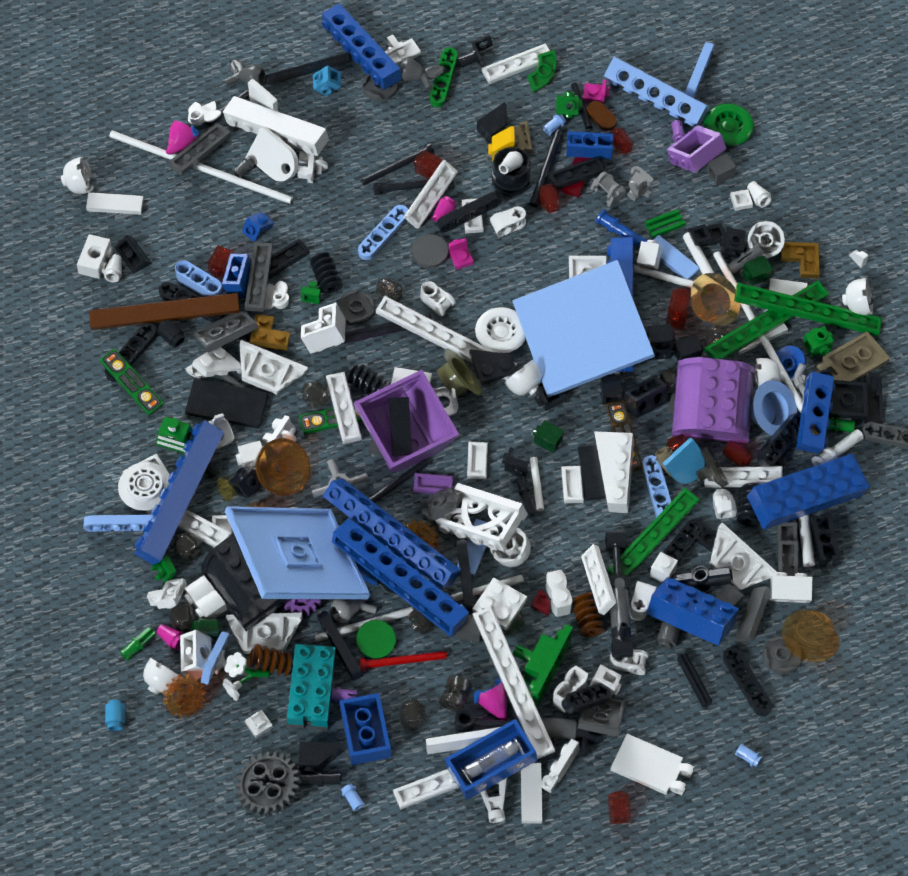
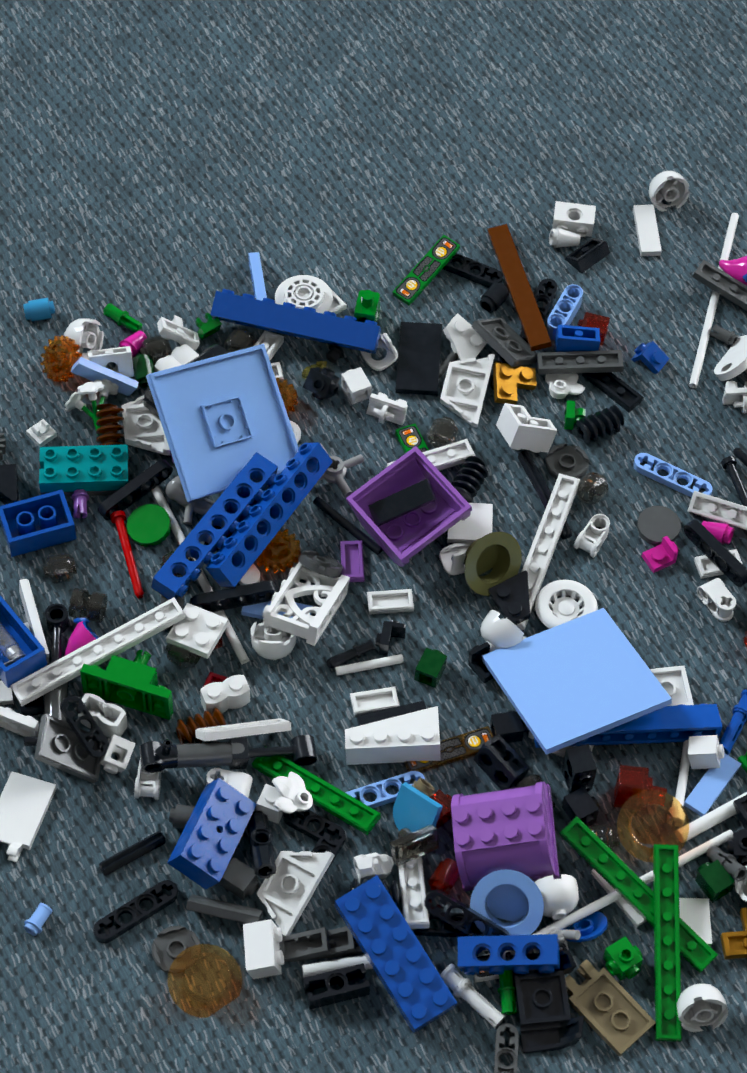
camera: 80 degrees right, 5 degrees down
(293, 467) = (329, 406): clear orange dish -> none
(662, 547) = (292, 790): none -> white plate

